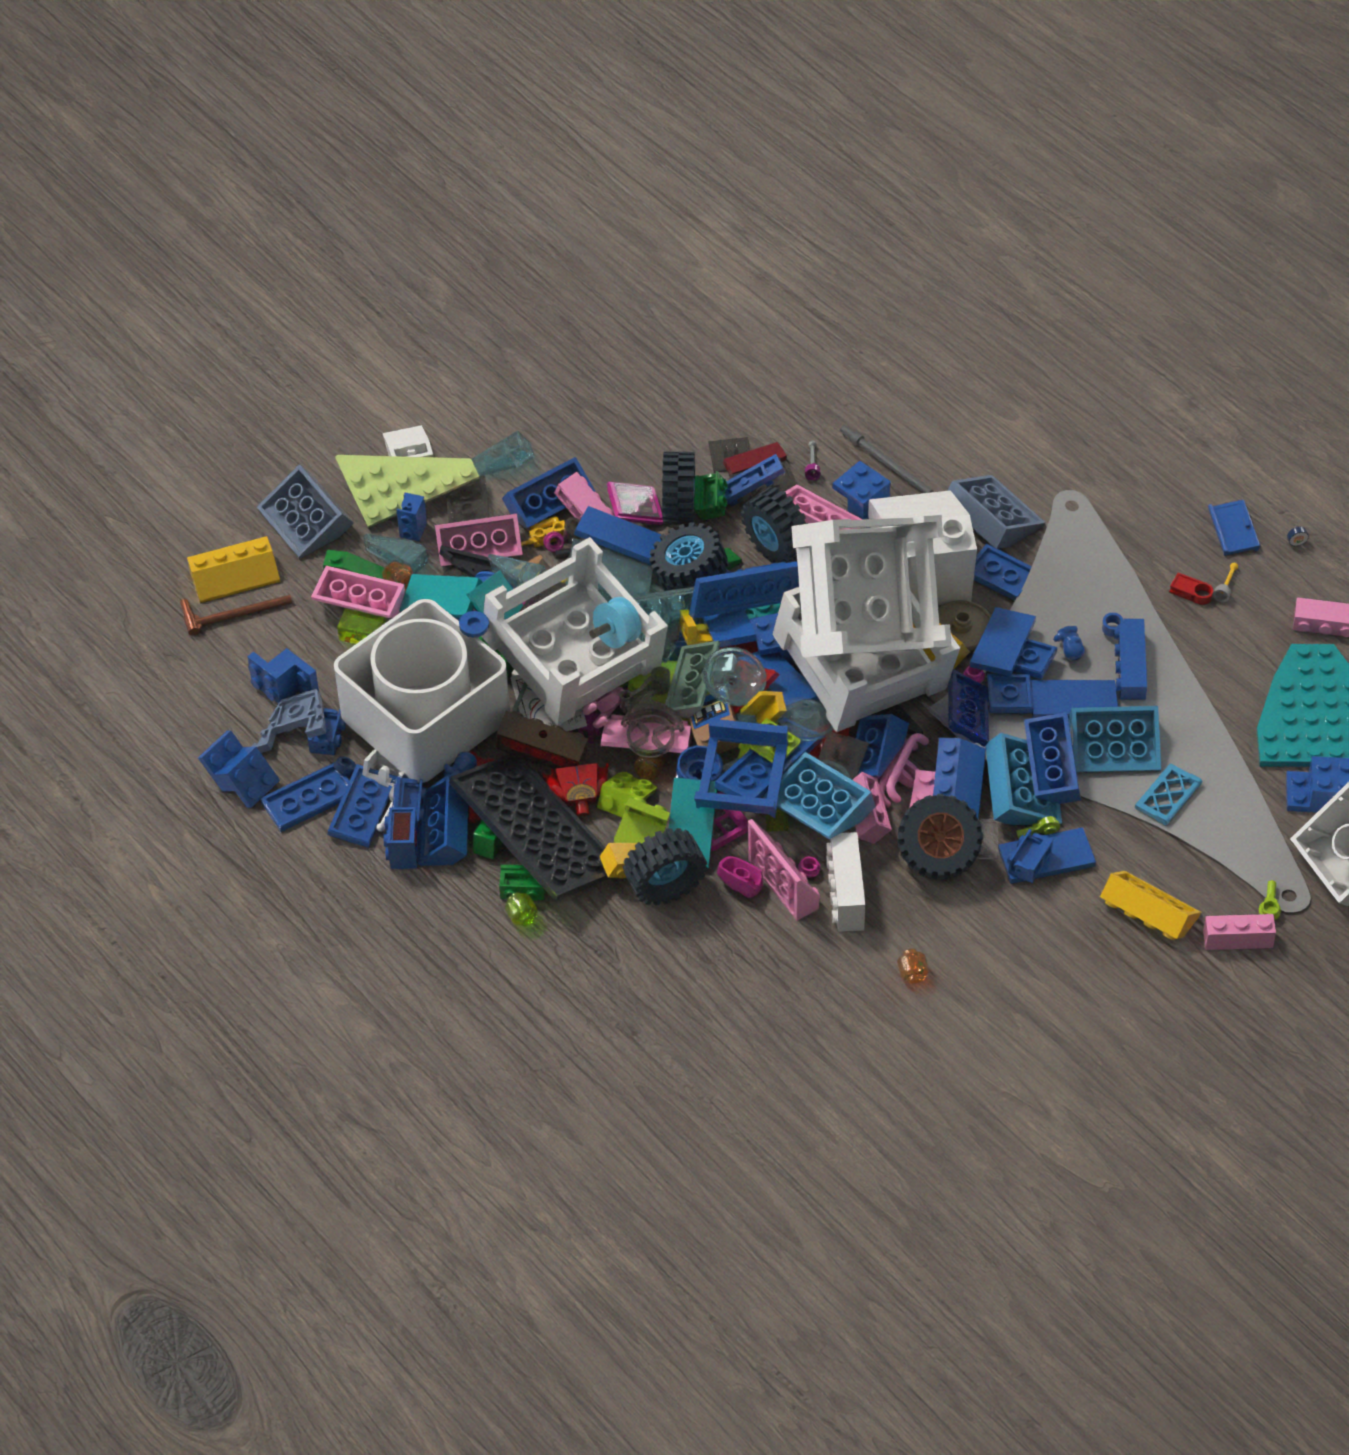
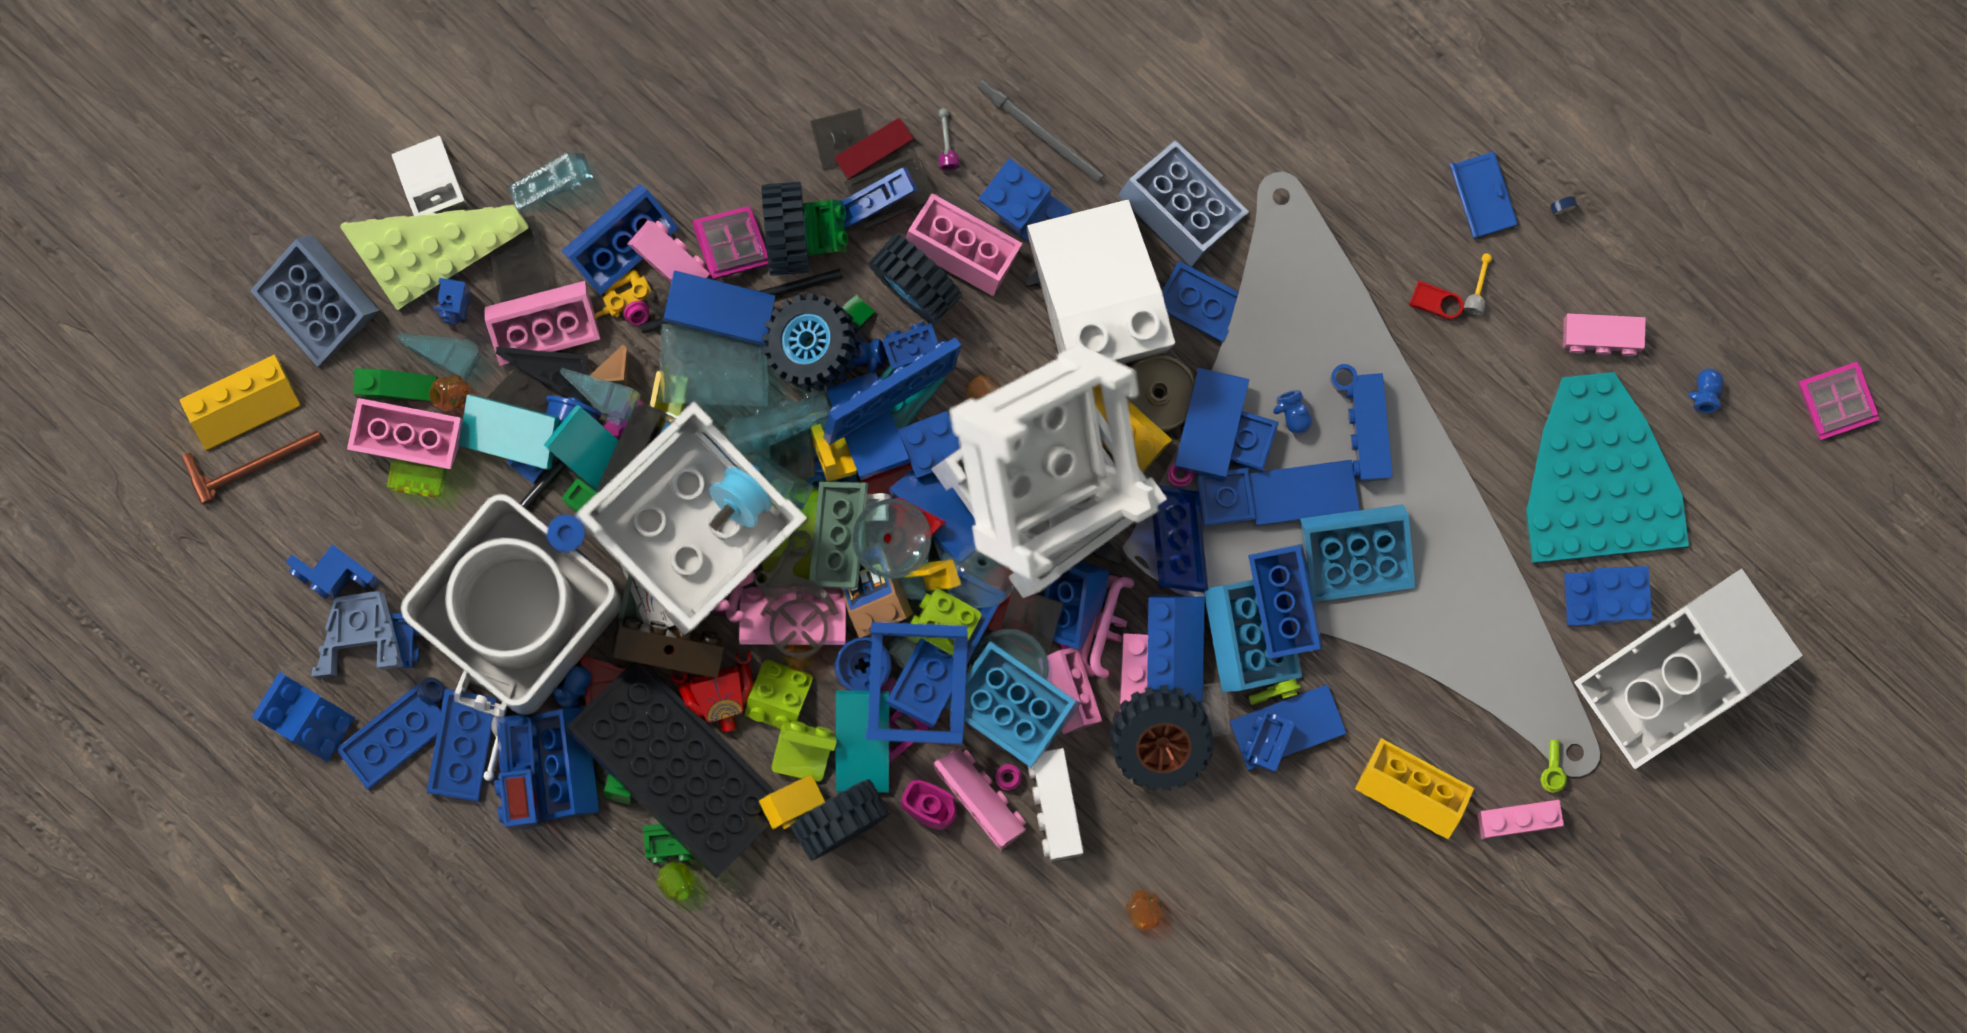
camera: 10 degrees left, 30 degrees up
(1153, 811) = (1416, 603): dark azure window -> none

